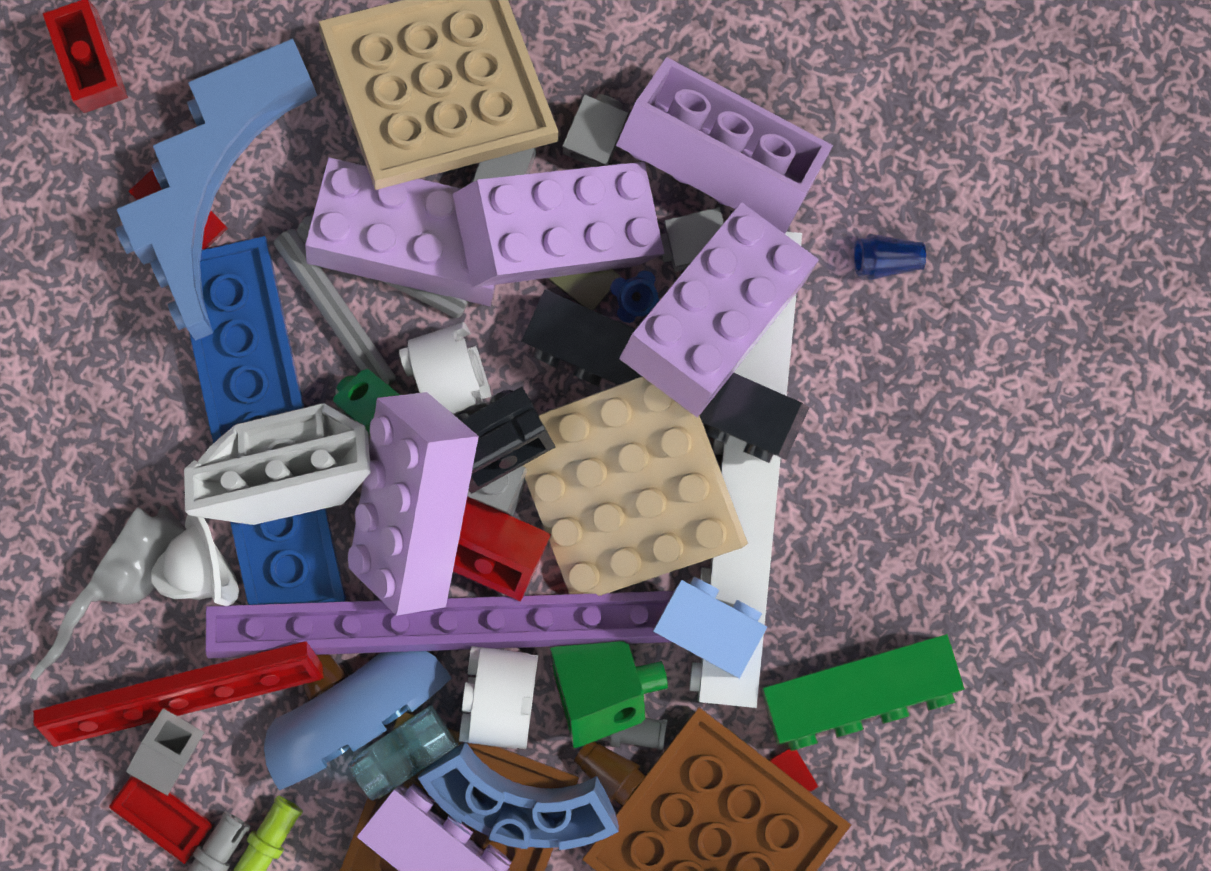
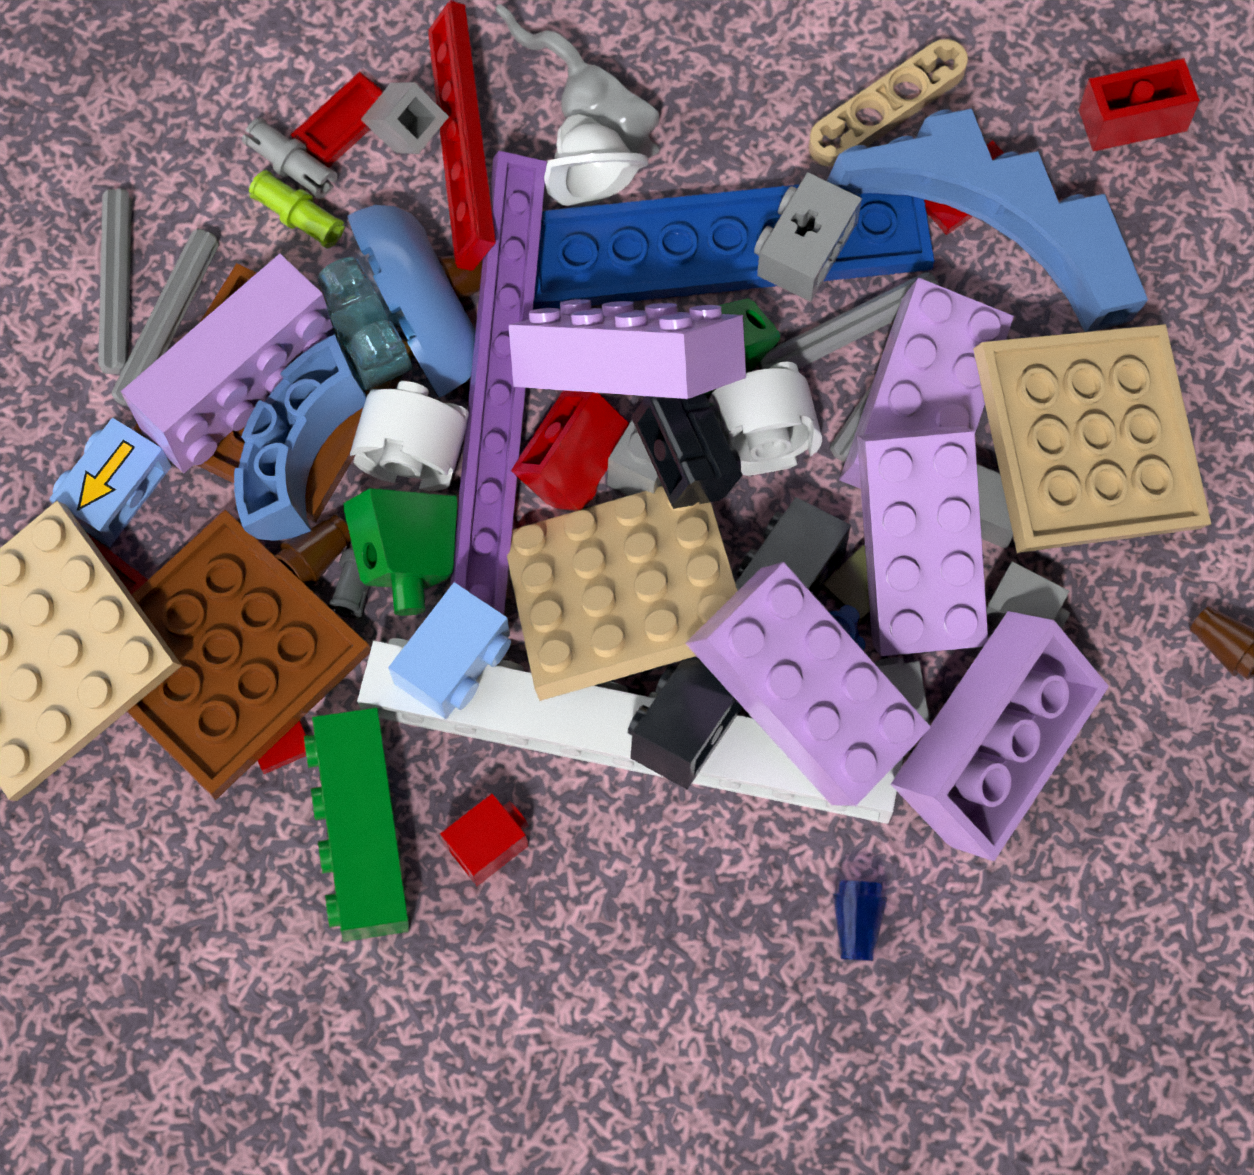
camera: 100 degrees right, 15 degrees down
(97, 290) = (884, 100): none -> tan beam
(239, 333) = (802, 261): none -> light grey brick
(279, 467) = (682, 230): white wedge -> none
(859, 579) = (486, 838): none -> red brick

